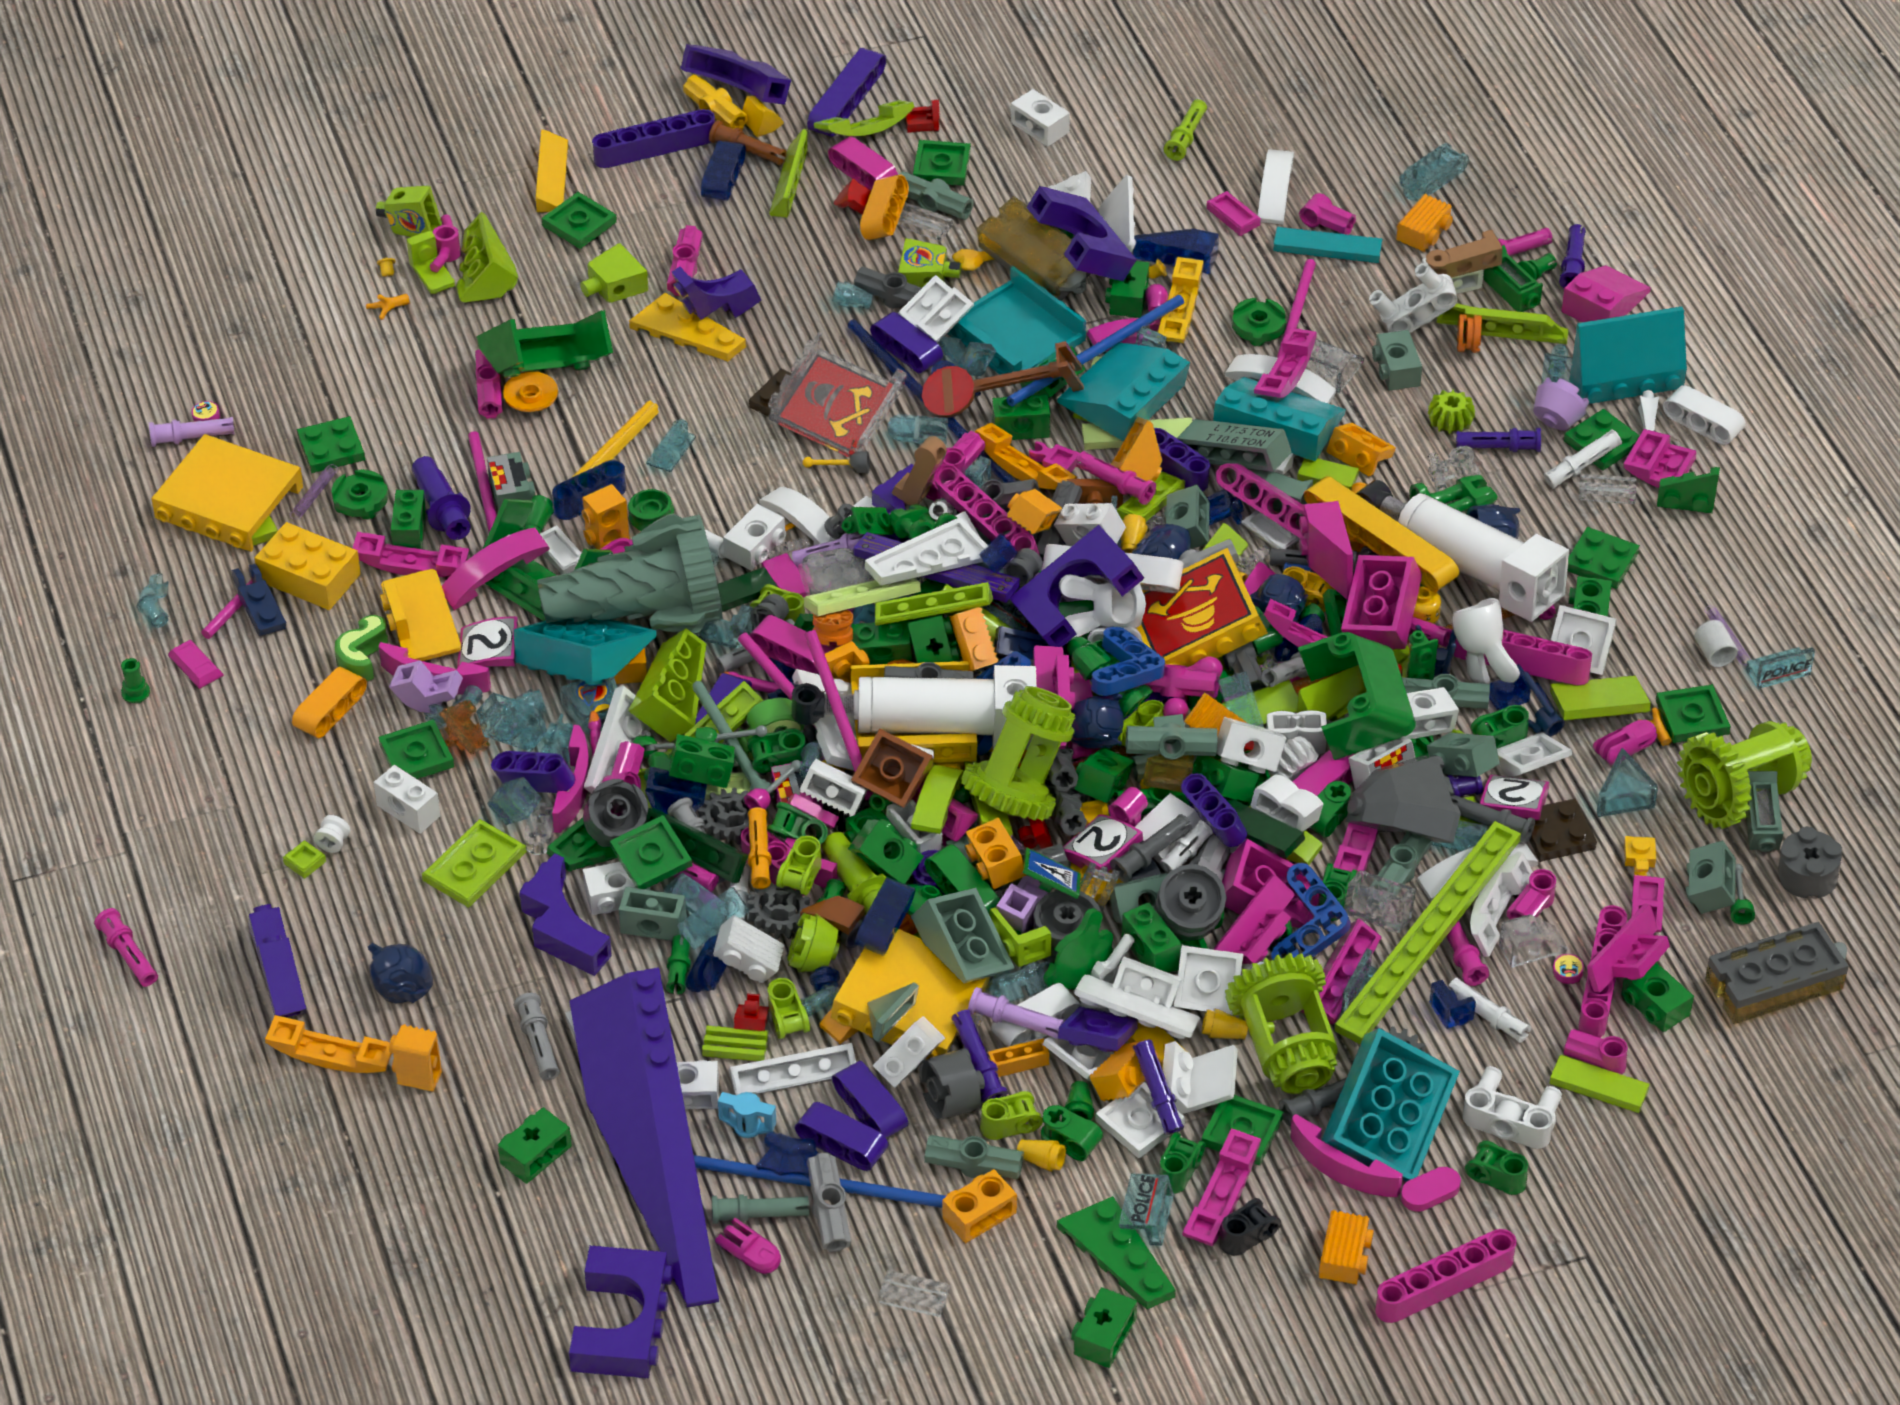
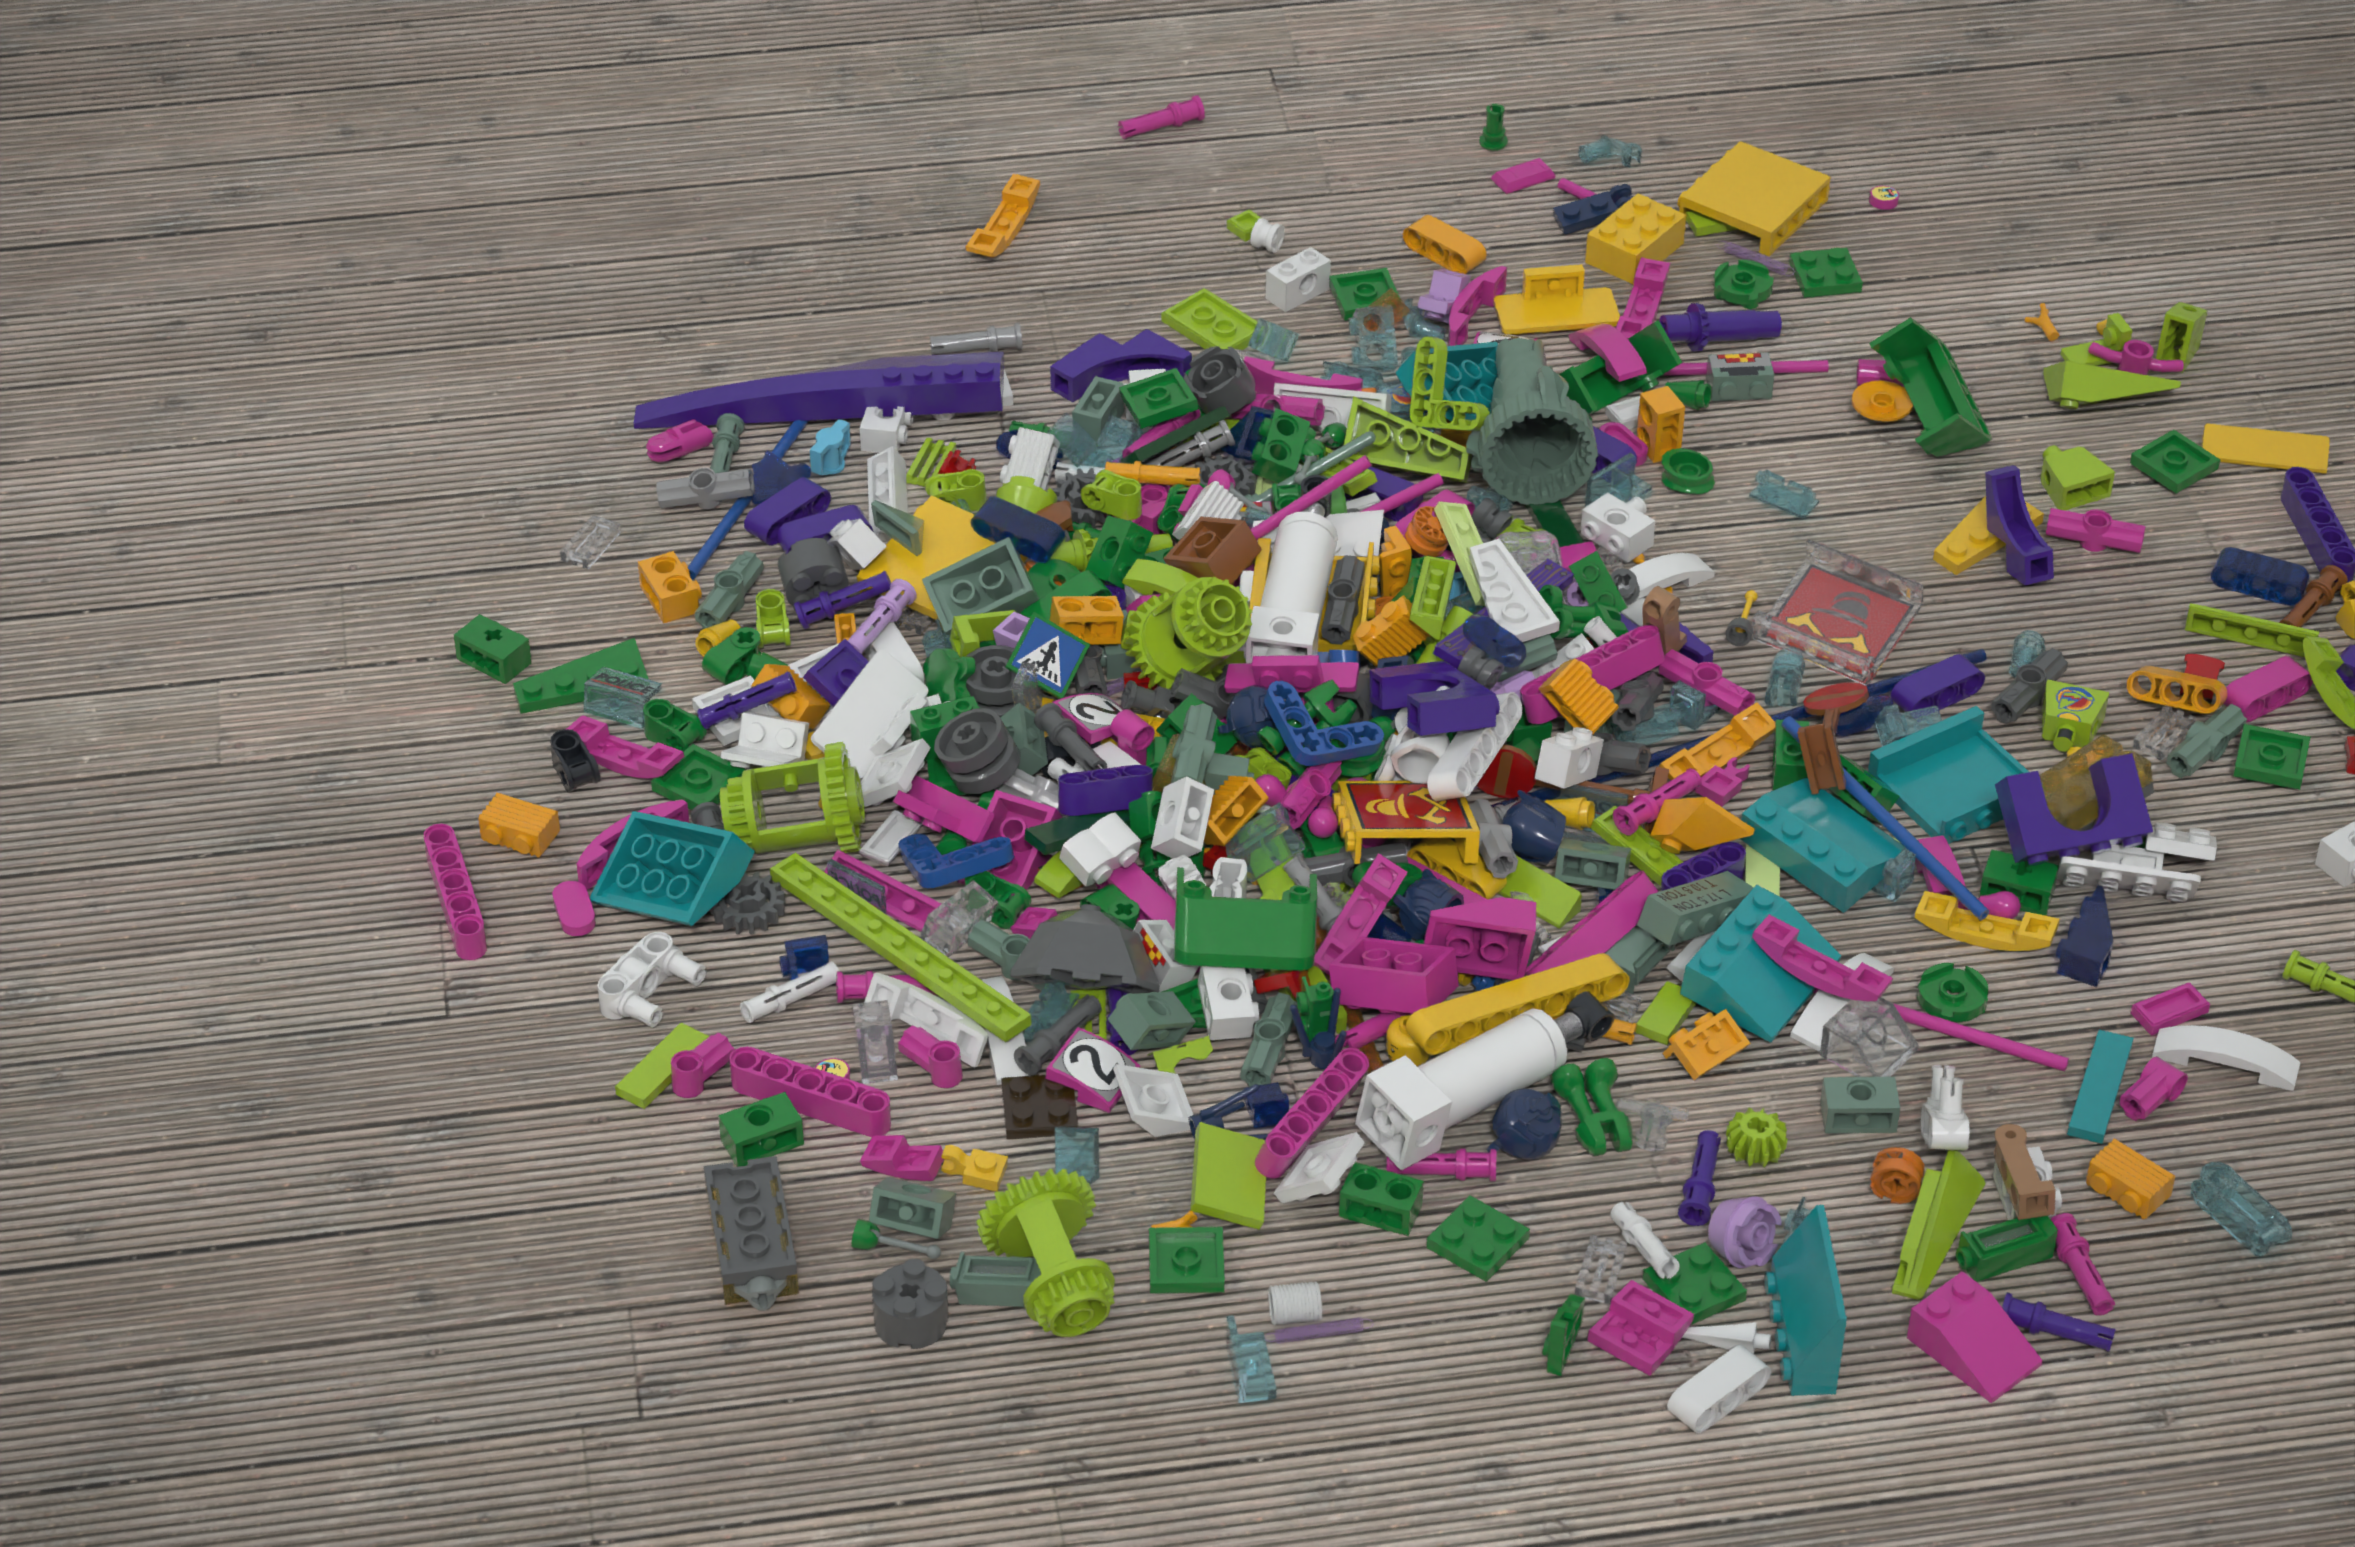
camera: 100 degrees right, 5 degrees down
(178, 431) = (1852, 174): lavender pin -> none
(276, 961) = (1101, 180): dark purple arch -> none
(356, 645) = (1510, 255): bright green animal -> none
(400, 972) = (1074, 259): dark blue helmet -> none
(409, 518) = (1679, 294): green brick -> none
(416, 1057) = (960, 255): light orange brick -> none
(534, 1145) = (845, 326): green brick -> none
(542, 770) = (1303, 348): dark purple beam -> none
(569, 494) = (1721, 429): clear blue beam -> none
(622, 436) = (1796, 458): yellow axle -> none
(631, 1348) = (595, 362): dark purple arch -> none
(646, 641) = (1436, 405): none -> lime beam
(936, 308) = (1972, 696): white slope -> none
(1157, 270) = (2065, 921): yellow piece -> none
(1480, 633) = (1313, 1044): white piece -> none
(1499, 1168) = (572, 957): green piece -> none
(1505, 725) = (1200, 1080): green piece -> none
(1537, 267) = (2030, 1274): green pin -> none
(1629, 951) = (805, 1088): dark pink bracket -> none
(1631, 737) = (1153, 1186): dark pink arm -> none

